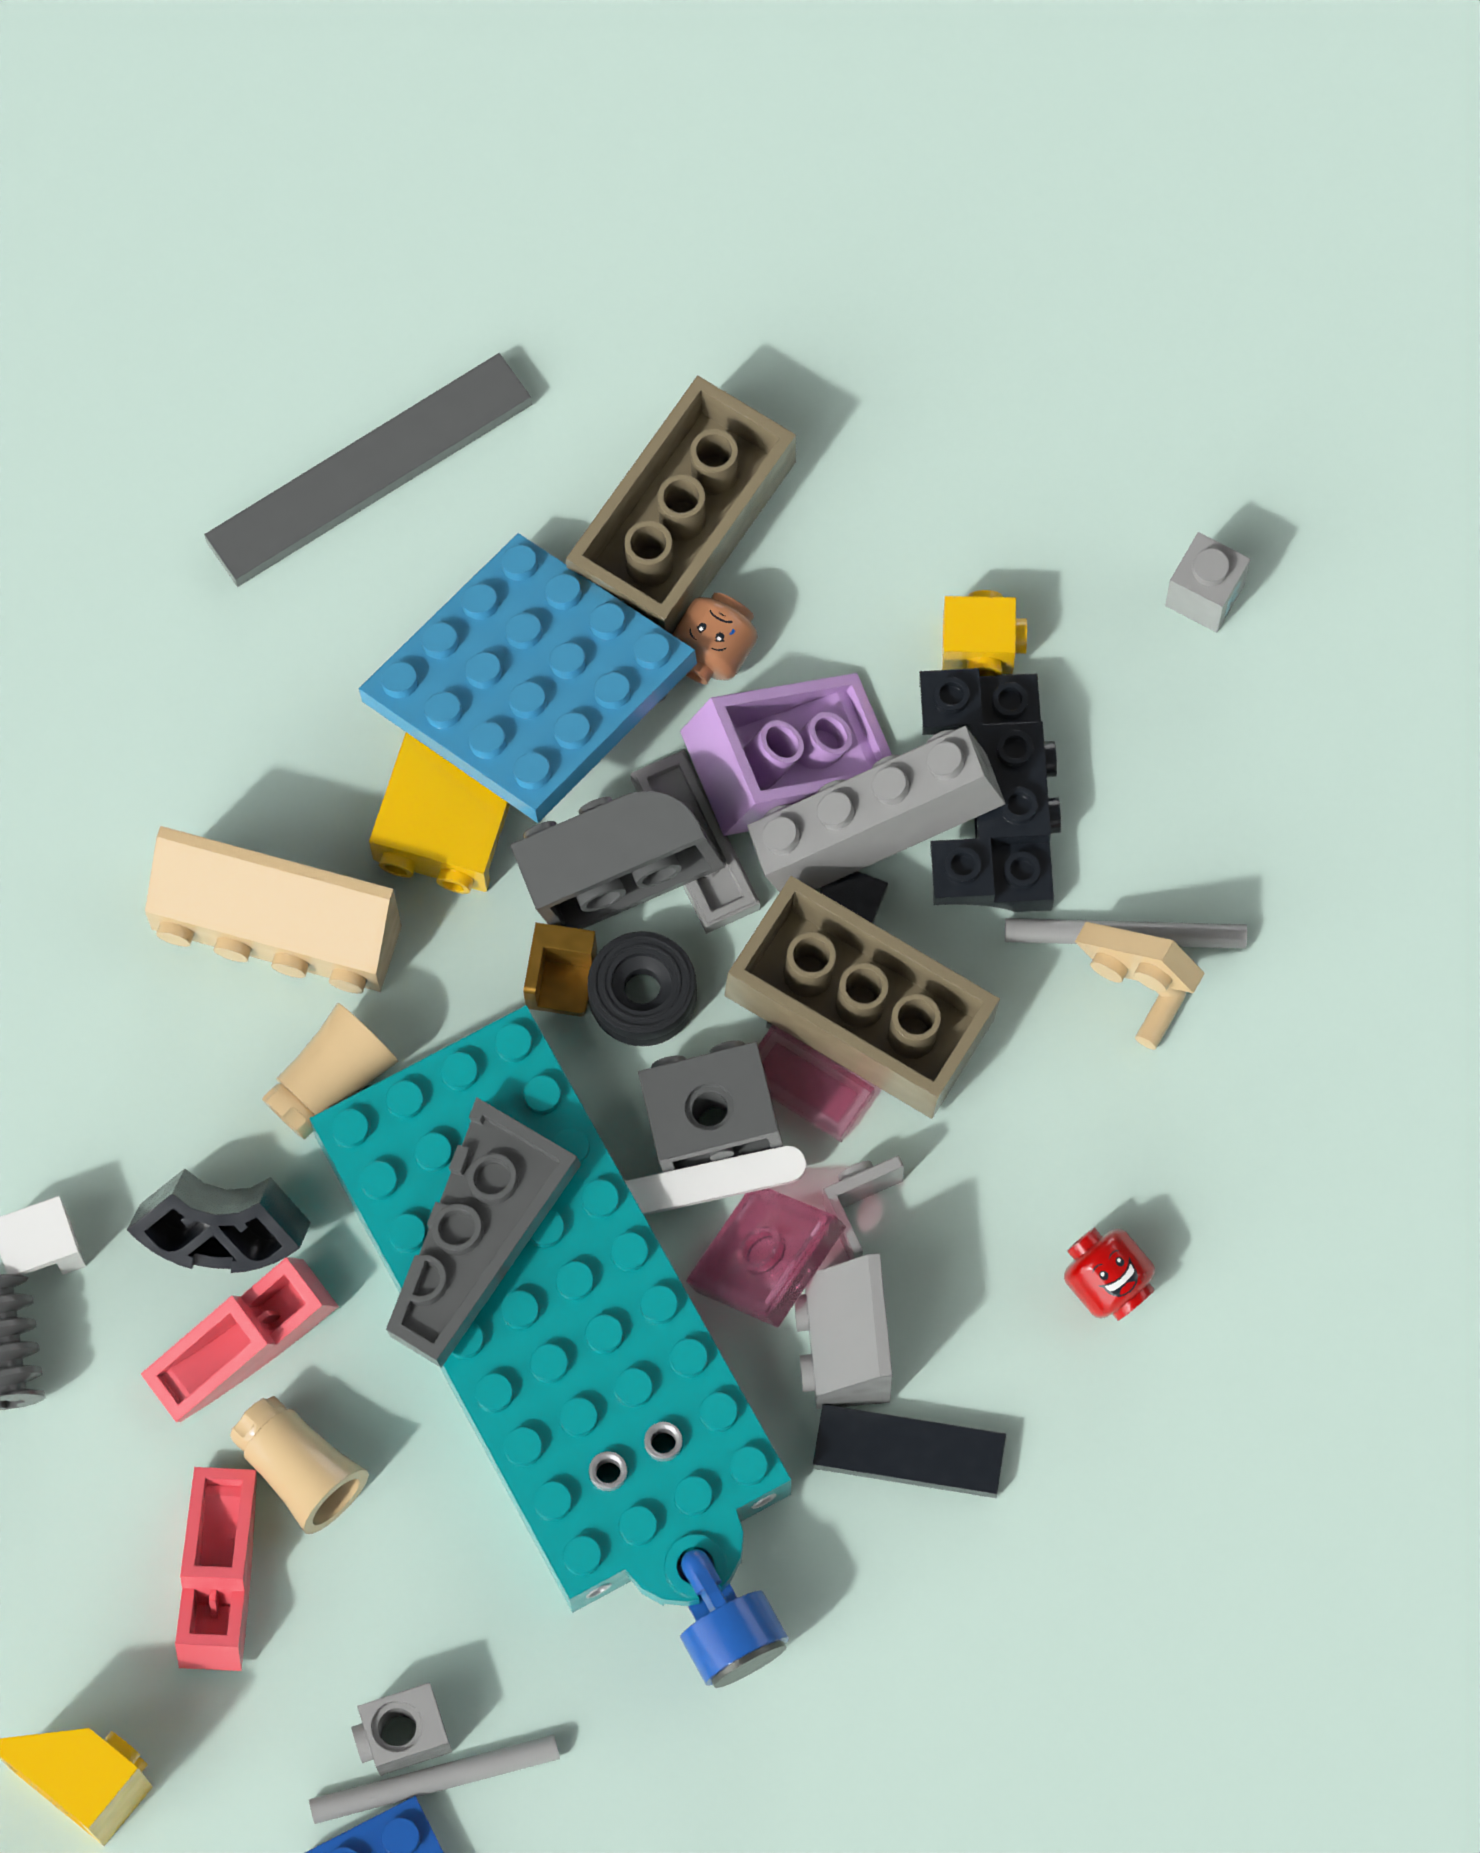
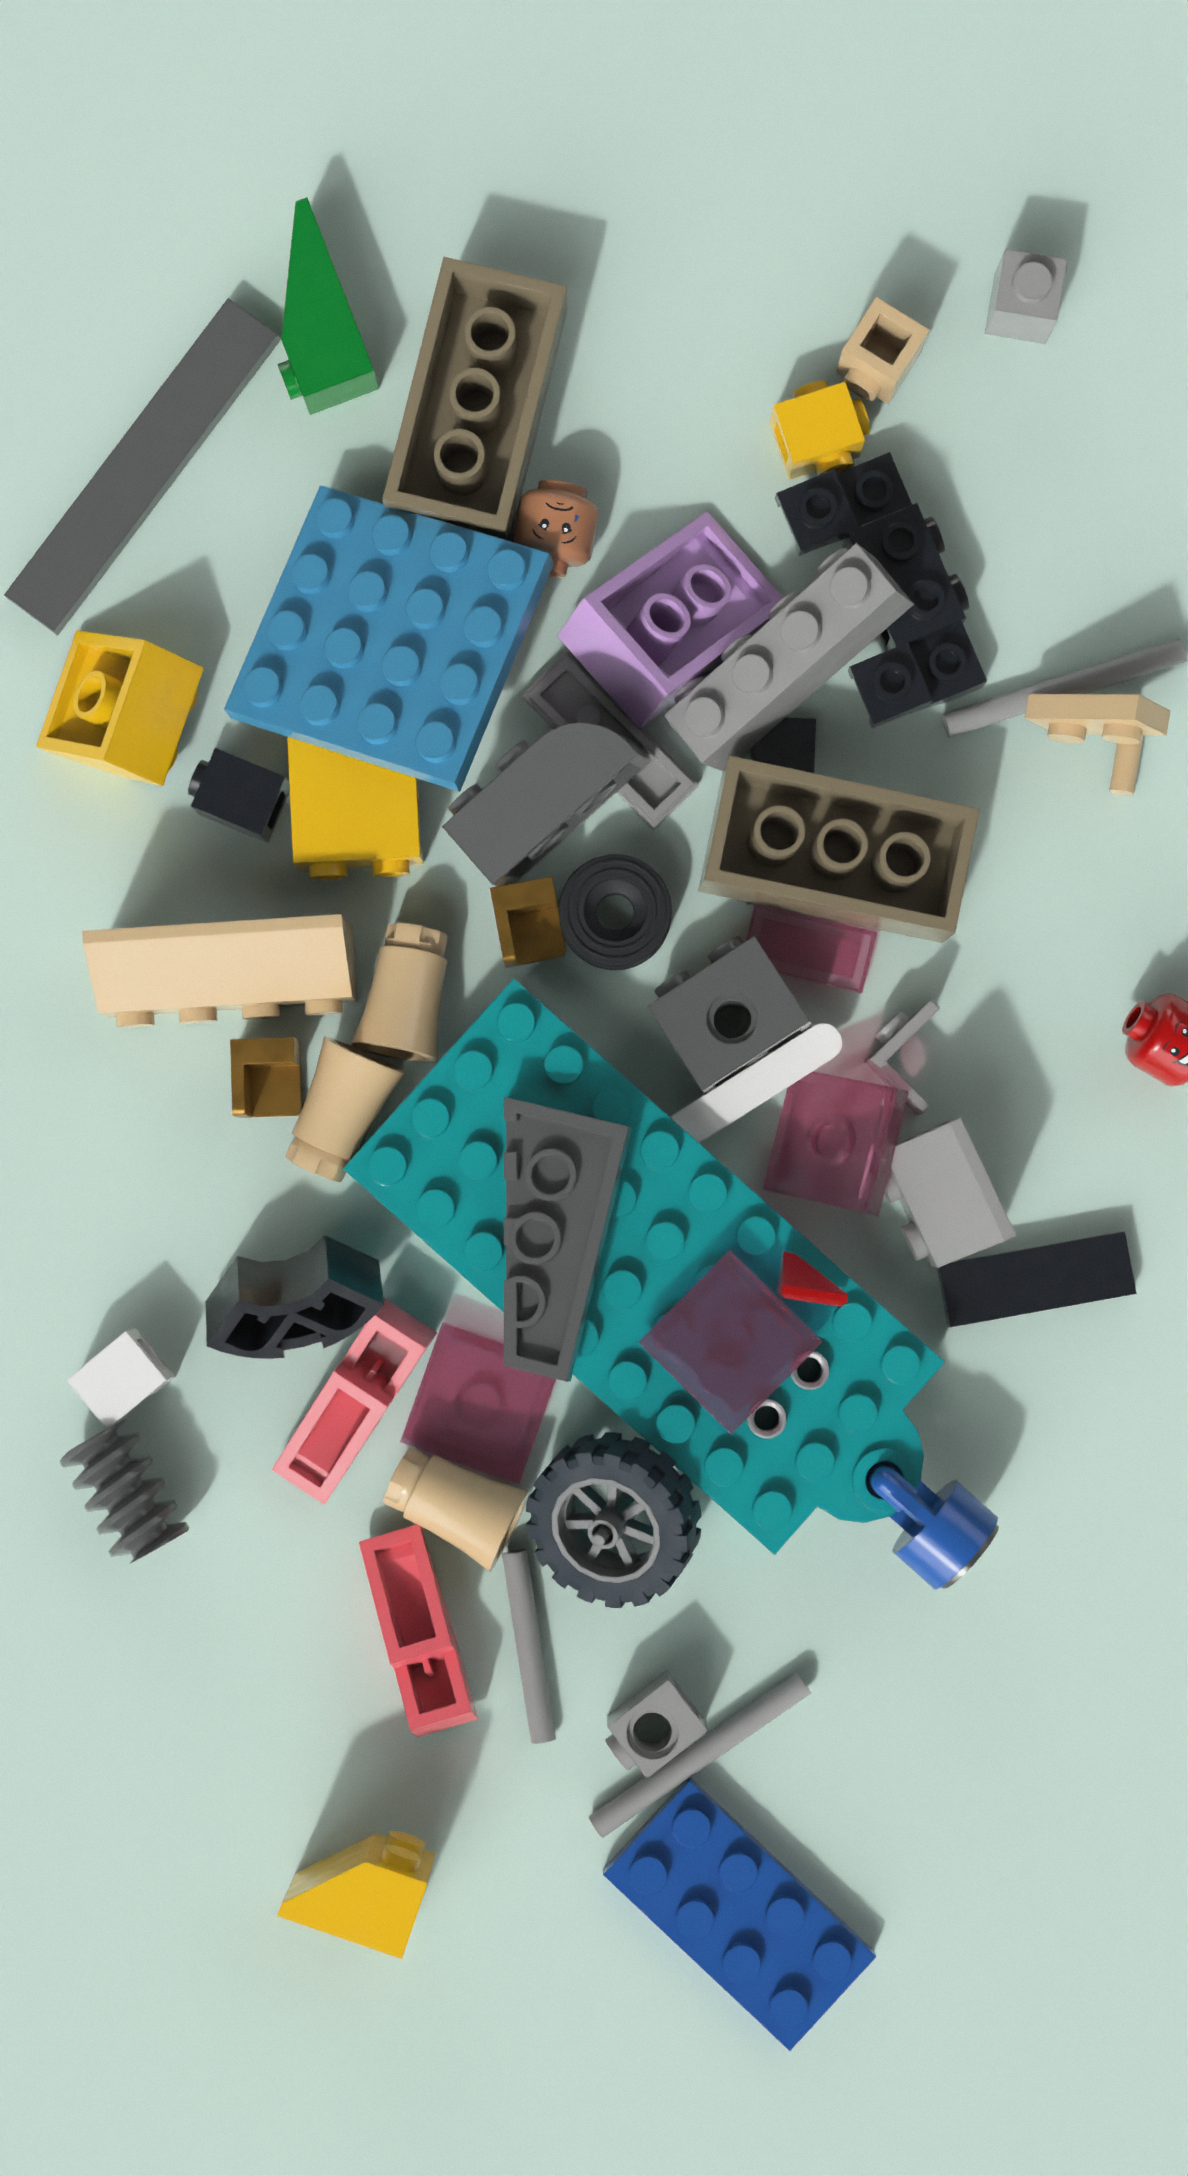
camera: 20 degrees left, 15 degrees up
(269, 662) = (120, 706): none -> yellow slope
(271, 1023) = (266, 1077): none -> pearl gold panel
(313, 1622) = (529, 1646): none -> light grey bar
(344, 772) = (238, 794): none -> black brick
(355, 1383) = (476, 1406): none -> clear pink tile
(382, 1512) = (647, 1485): none -> black wheel
(424, 995) = (405, 995): none -> tan plant
(568, 401) = (318, 330): none -> green slope
(599, 1385) = (730, 1341): none -> clear pink tile
(687, 1357) = (804, 1283): none -> red slope
(1058, 585) = (881, 352): none -> tan brick

